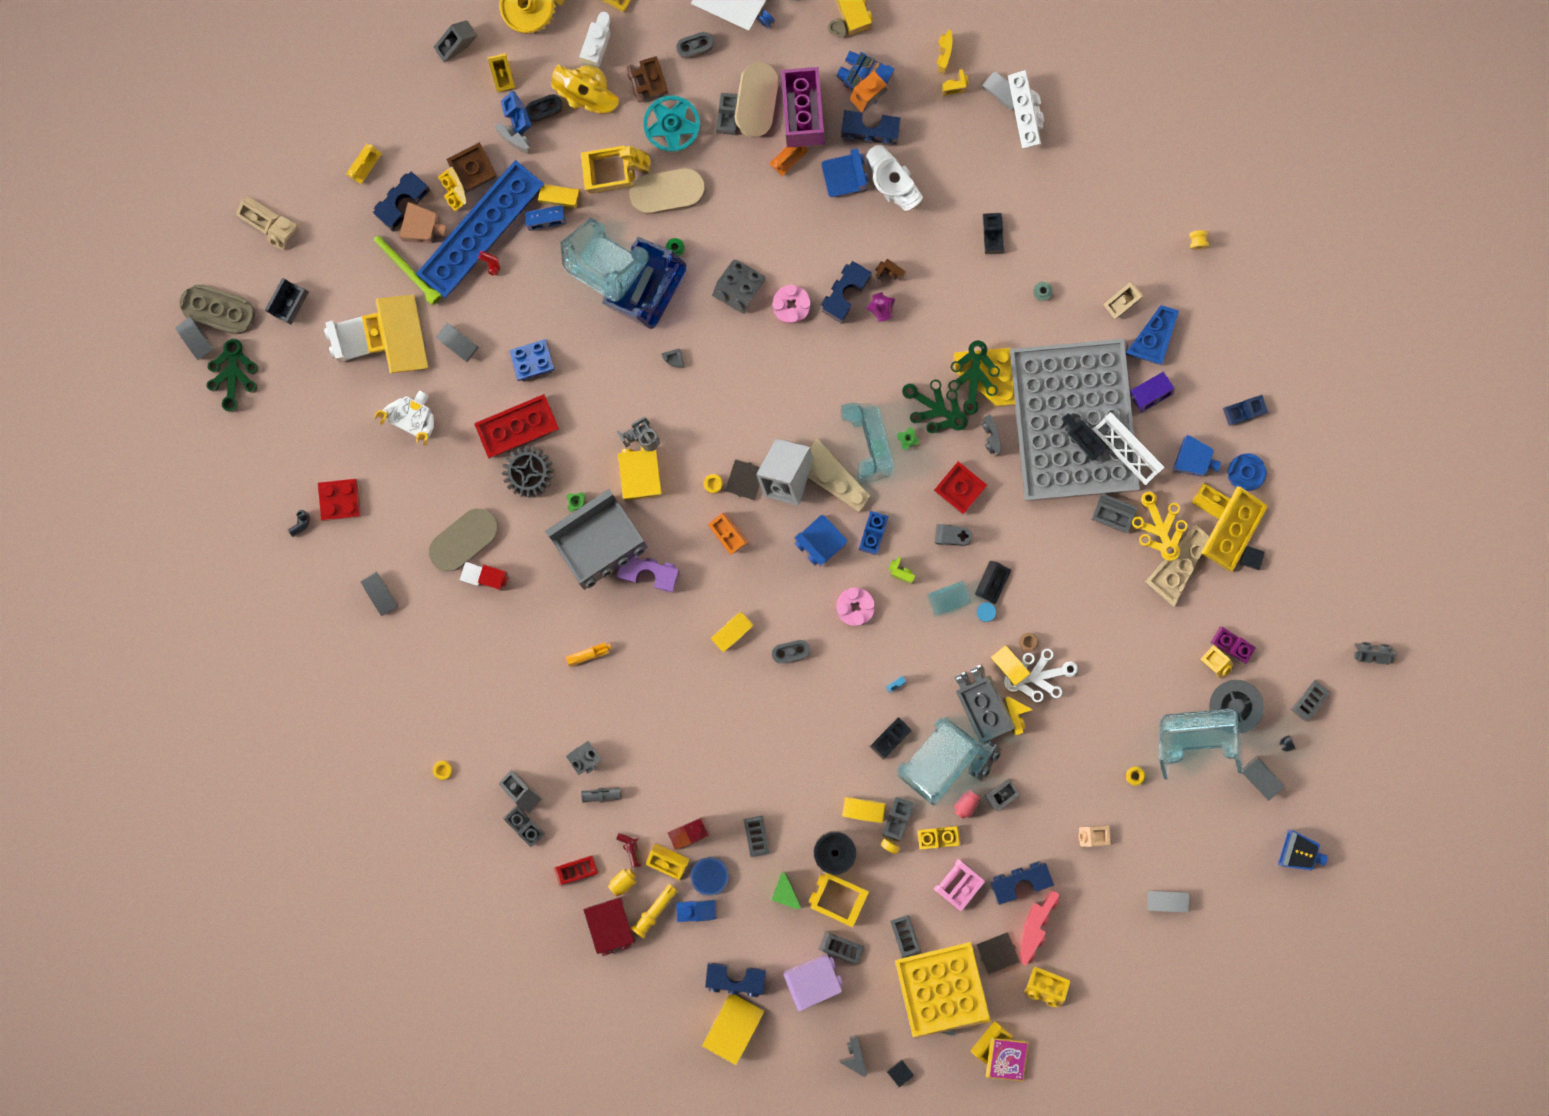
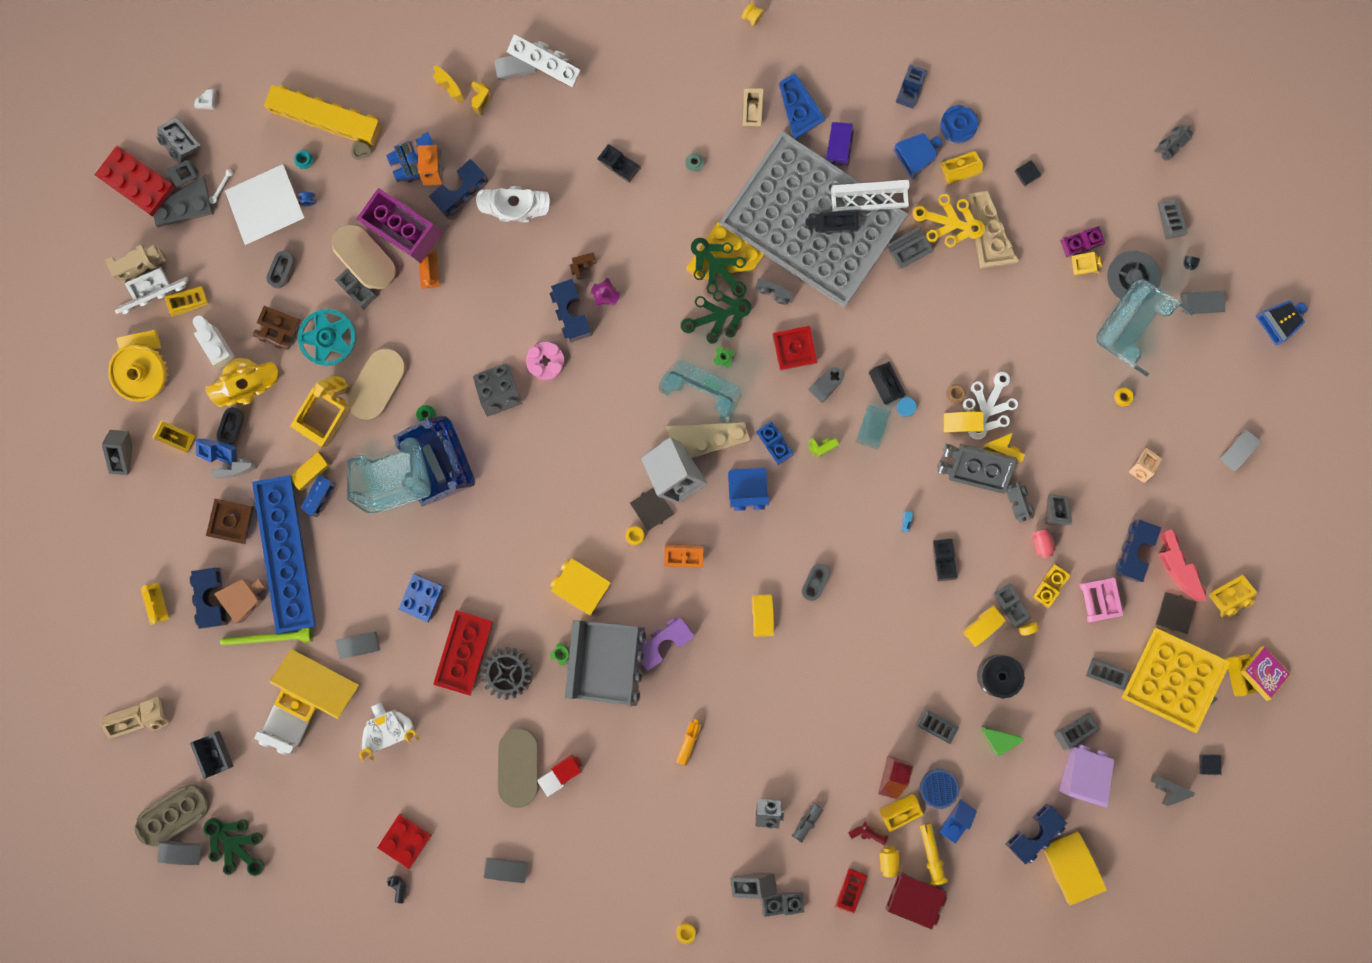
camera: 55 degrees left, 0 degrees up
(455, 195) = (240, 551): yellow slope -> none
(492, 262) = (317, 565): red arm -> none
(642, 433) = (550, 558): dark grey piece -> none
(673, 358) = (511, 486): dark grey tile -> none
(822, 881) = (1056, 694): yellow window -> none
(845, 174) = (479, 237): blue bracket -> none
(852, 596) = (815, 513): bright pink plate -> none
(939, 761) = (995, 536): clear light blue windscreen -> none
(1234, 529) = (996, 168): yellow tile -> none

